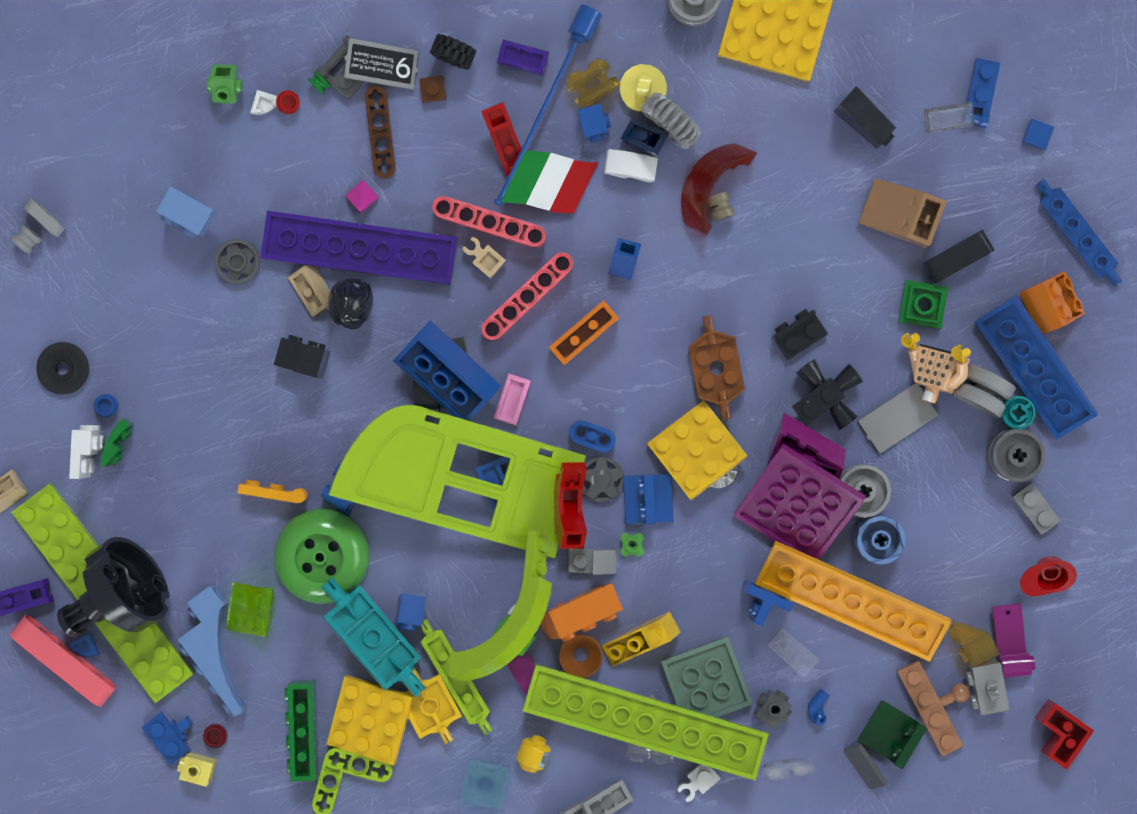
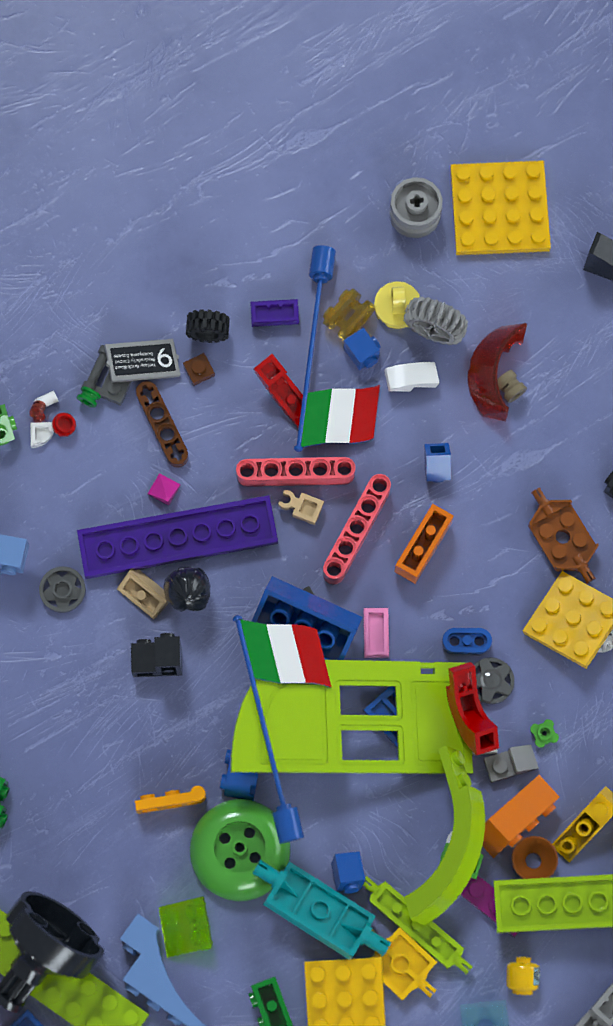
camera: 20 degrees left, 15 degrees down
(271, 74) = (39, 405): none -> clear red arm
(412, 402) = (284, 657): none -> flag
(644, 137) = (416, 345): dark blue slope -> none
(648, 498) = (543, 683): blue bracket -> none

